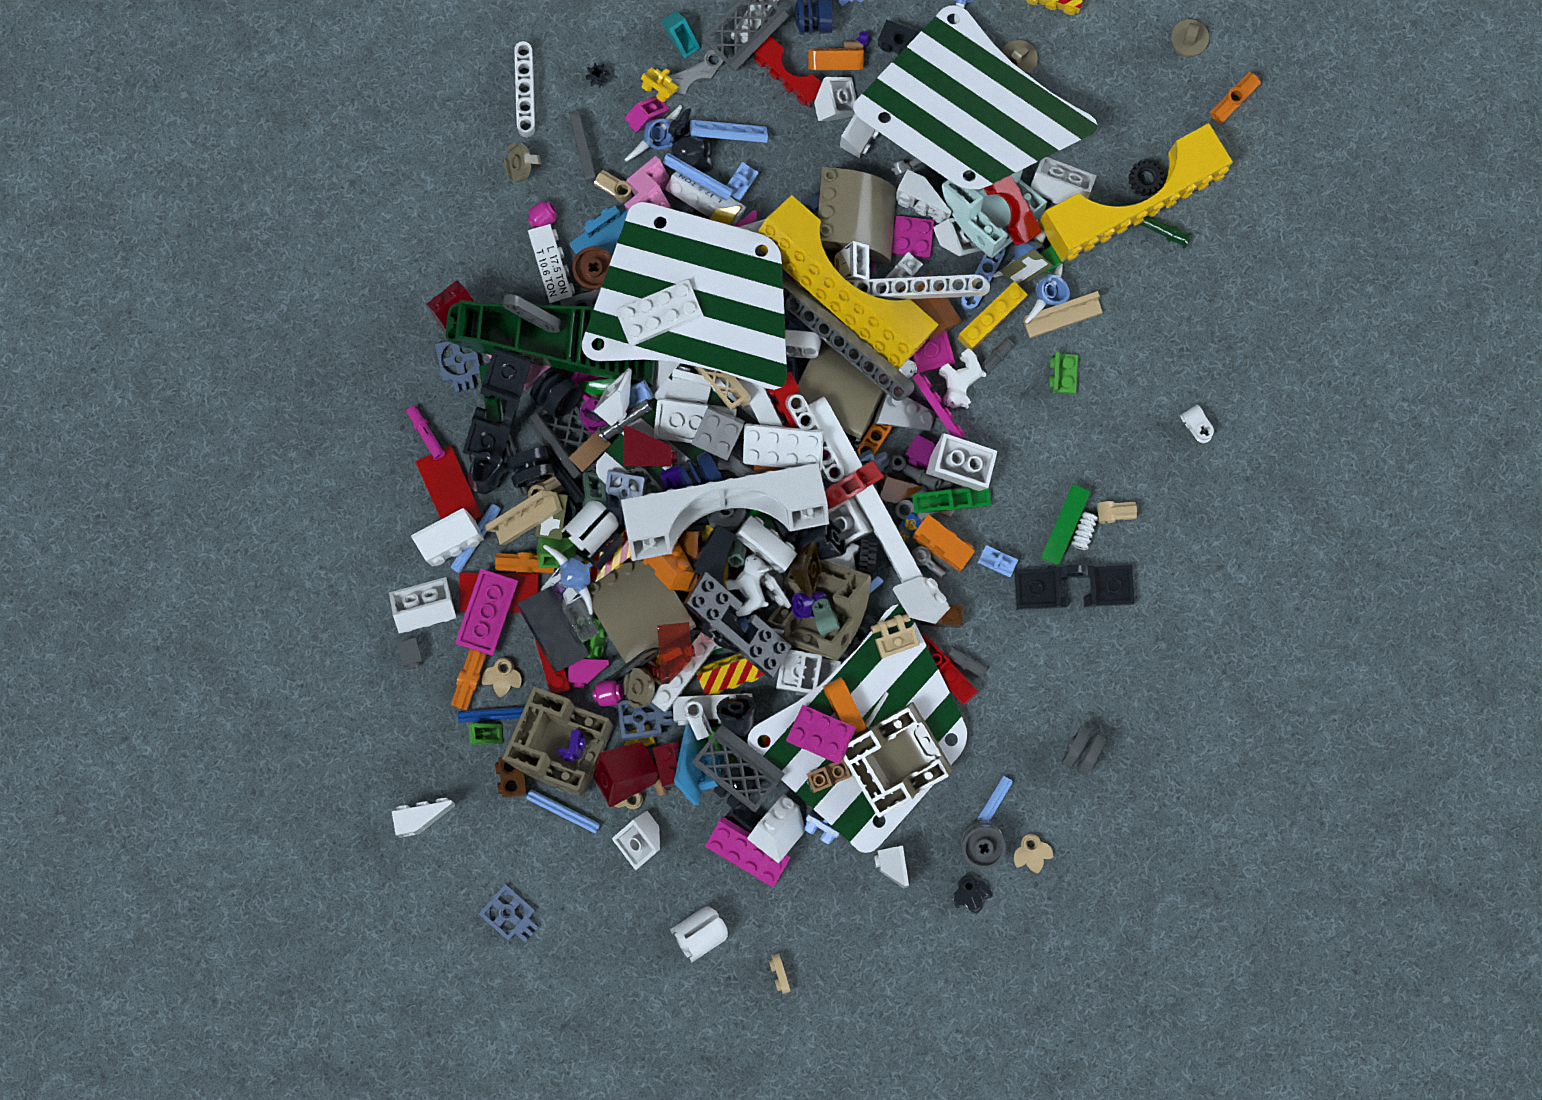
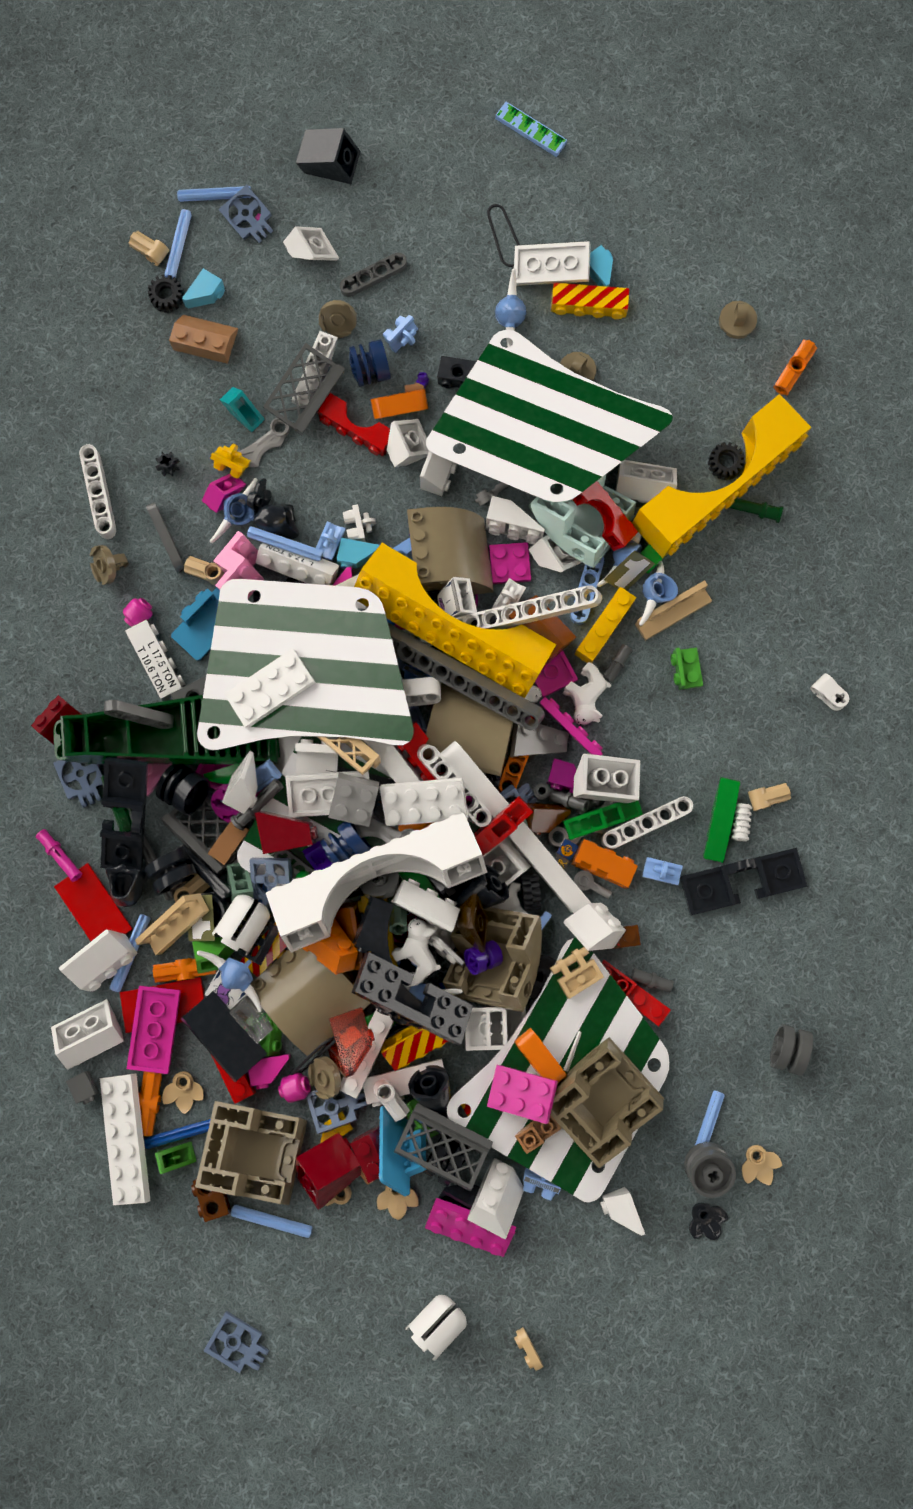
camera: 10 degrees left, 0 degrees up
(416, 819) = (113, 1268): white slope -> none
(441, 708) = (124, 1139): none -> white plate
(576, 745) = (271, 1151): dark purple bracket -> none
(583, 263) = (187, 652): copper wheel -> none
(639, 840) = (356, 1236): white slope -> none
(682, 817) = (396, 1203): none -> tan plate
(726, 214) = (320, 576): yellow tile -> none
(728, 131) = (307, 493): light blue tile -> none
(763, 198) = (354, 553): none -> medium azure slope
(769, 161) = (353, 516): none -> white hips
(824, 617) = (502, 970): sand green piece -> none
(1000, 507) = (655, 818): none -> white beam

